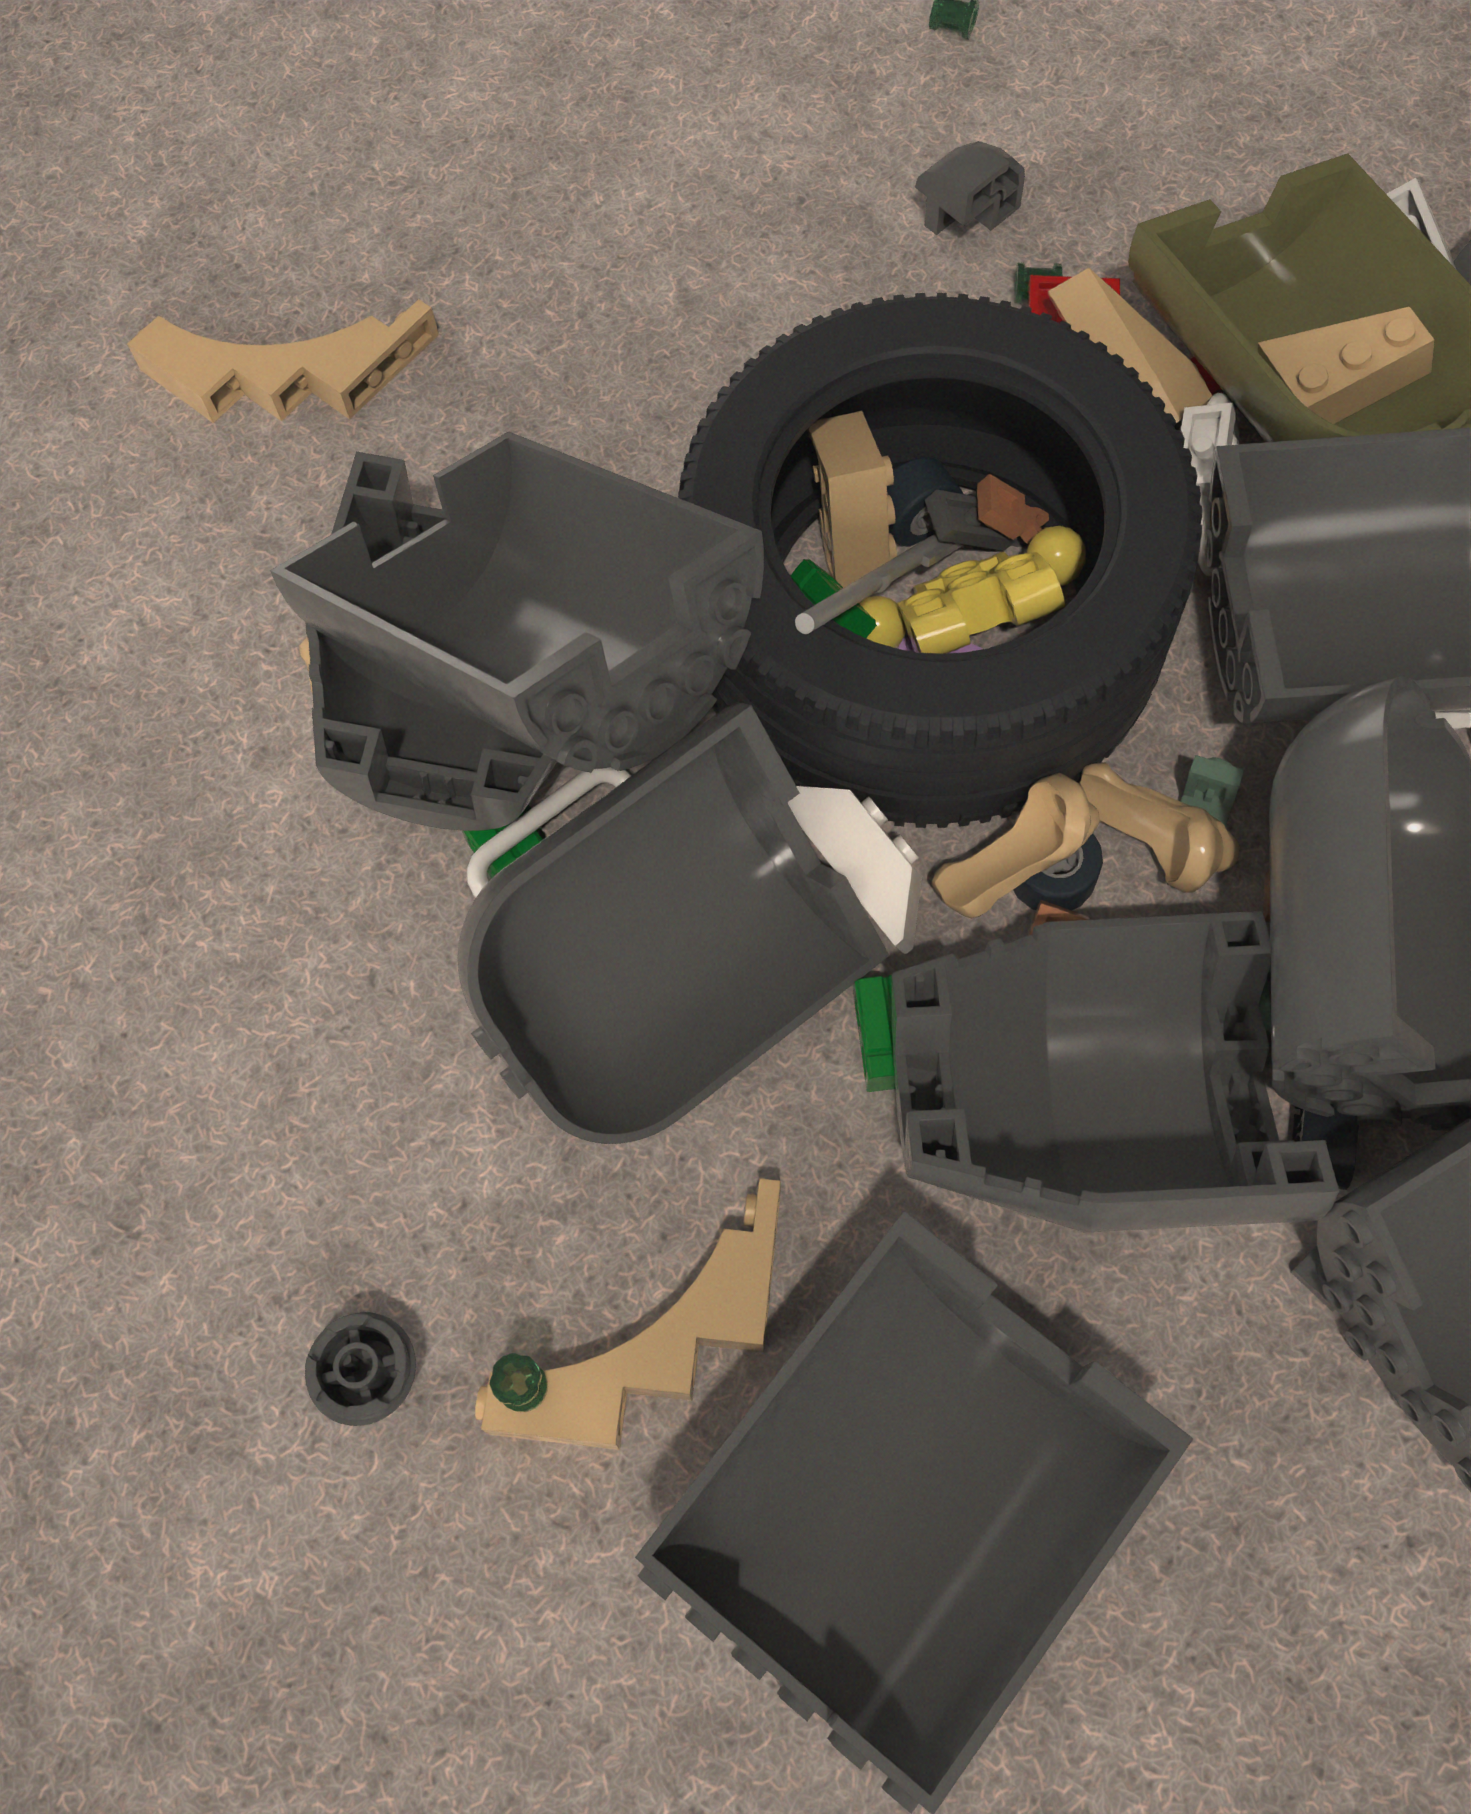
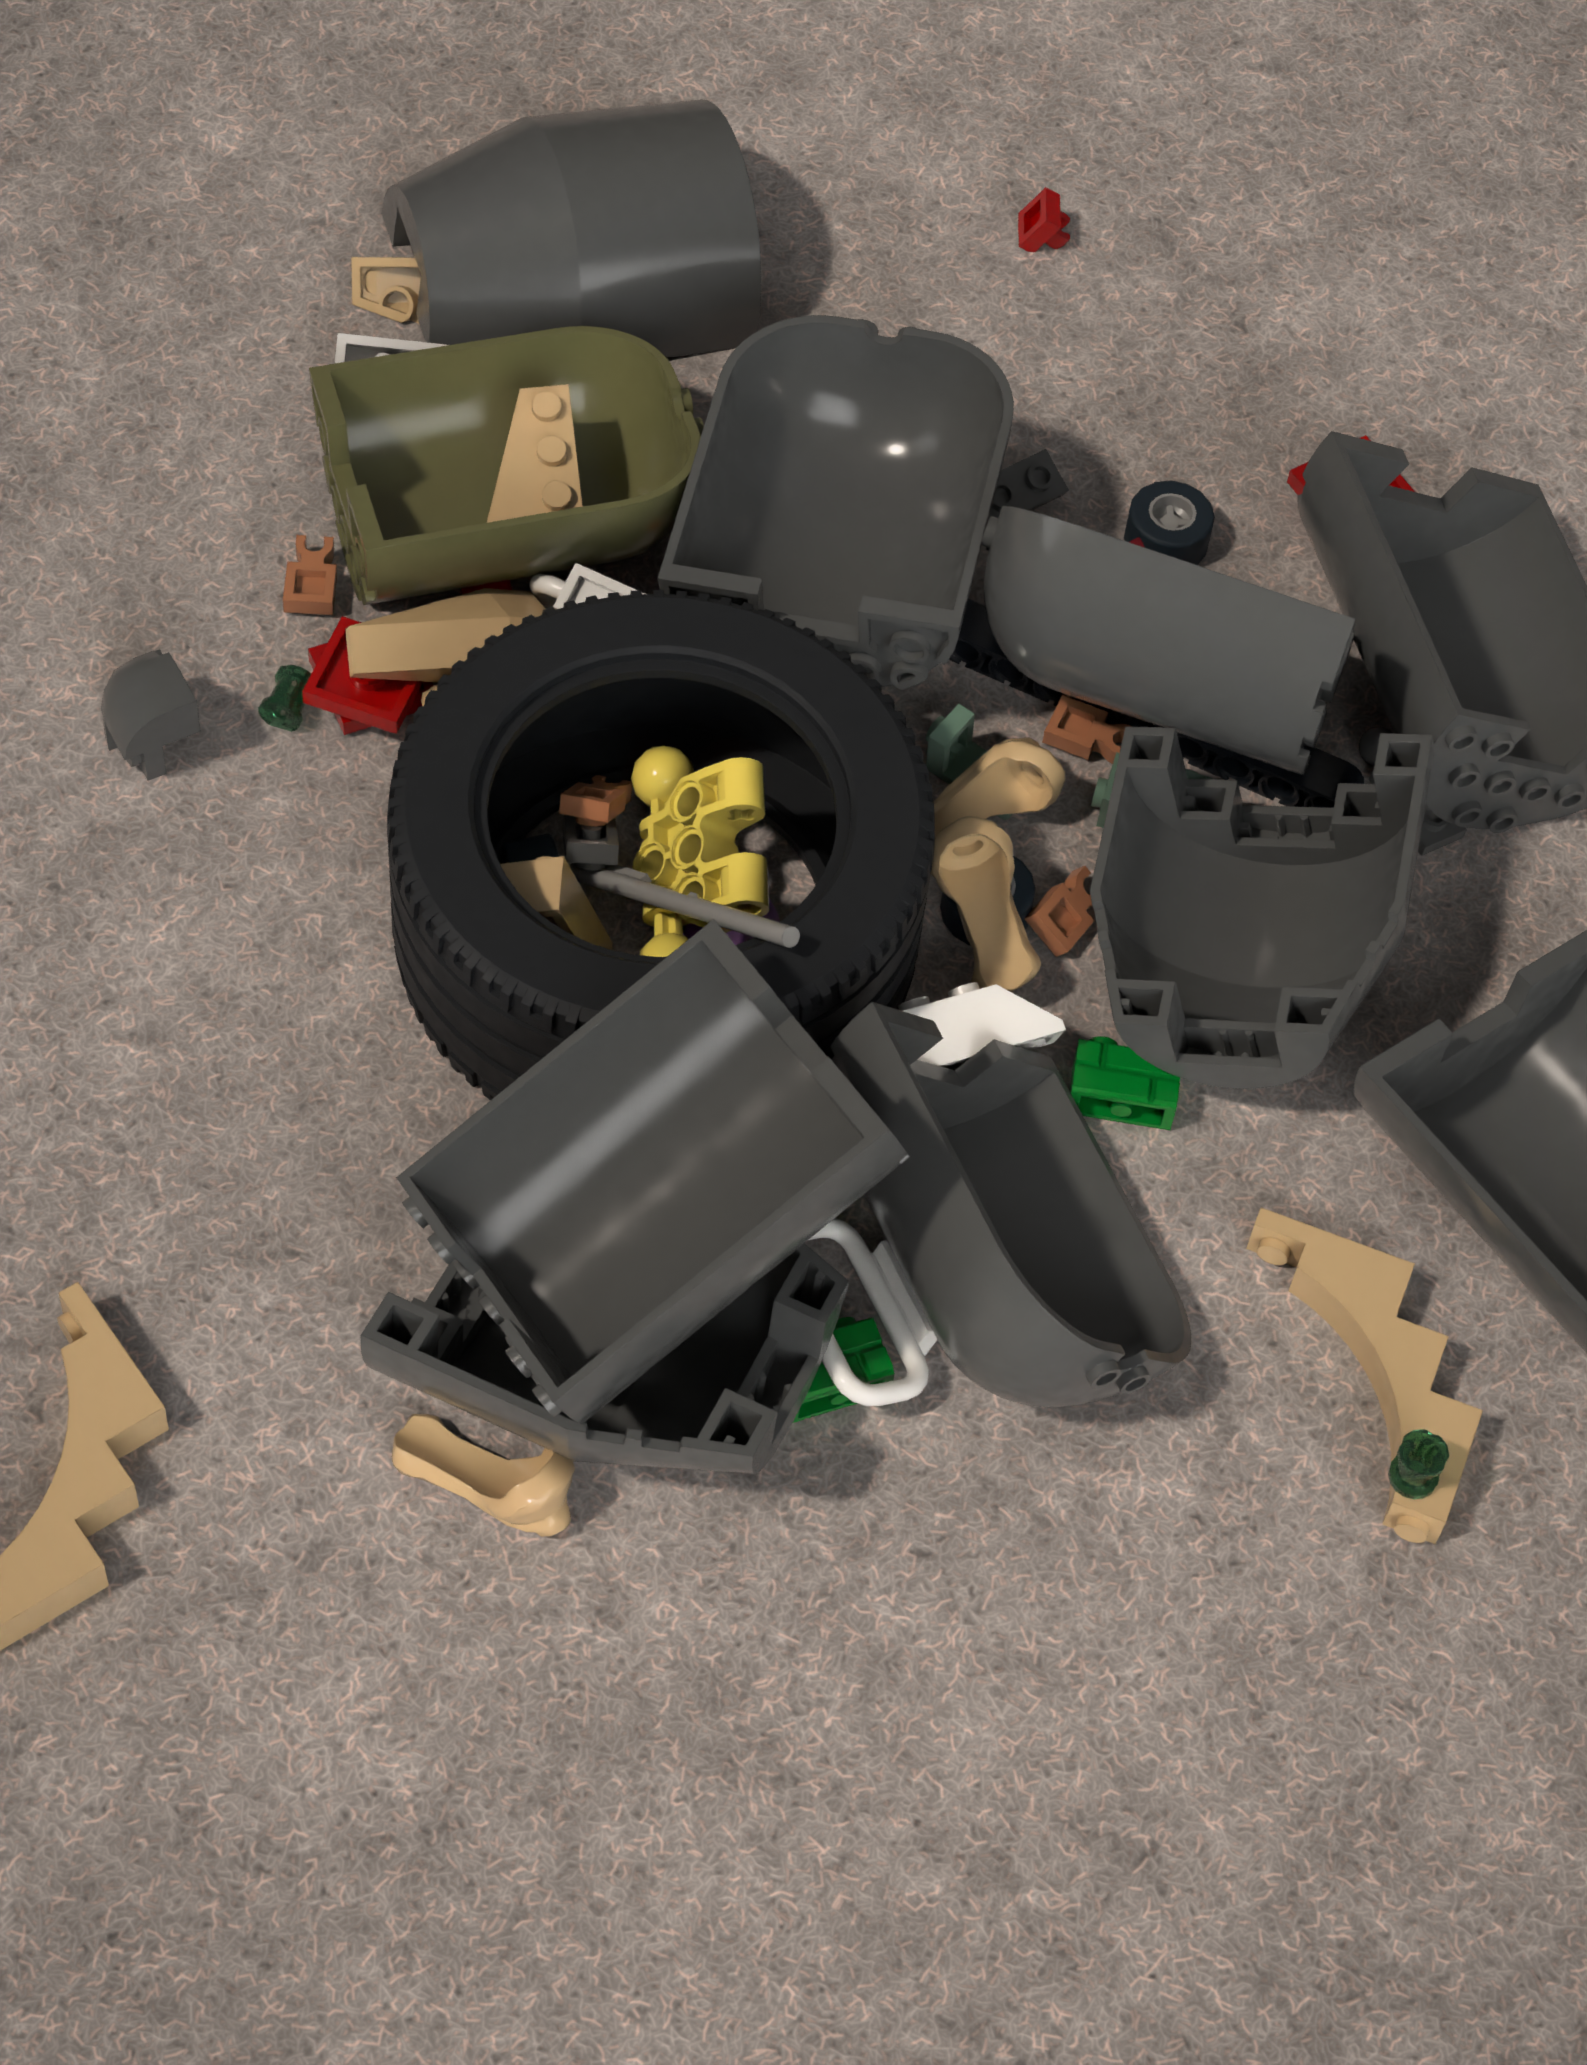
camera: 85 degrees left, 10 degrees down
(360, 1369) = (1364, 1619): dark grey cone -> none

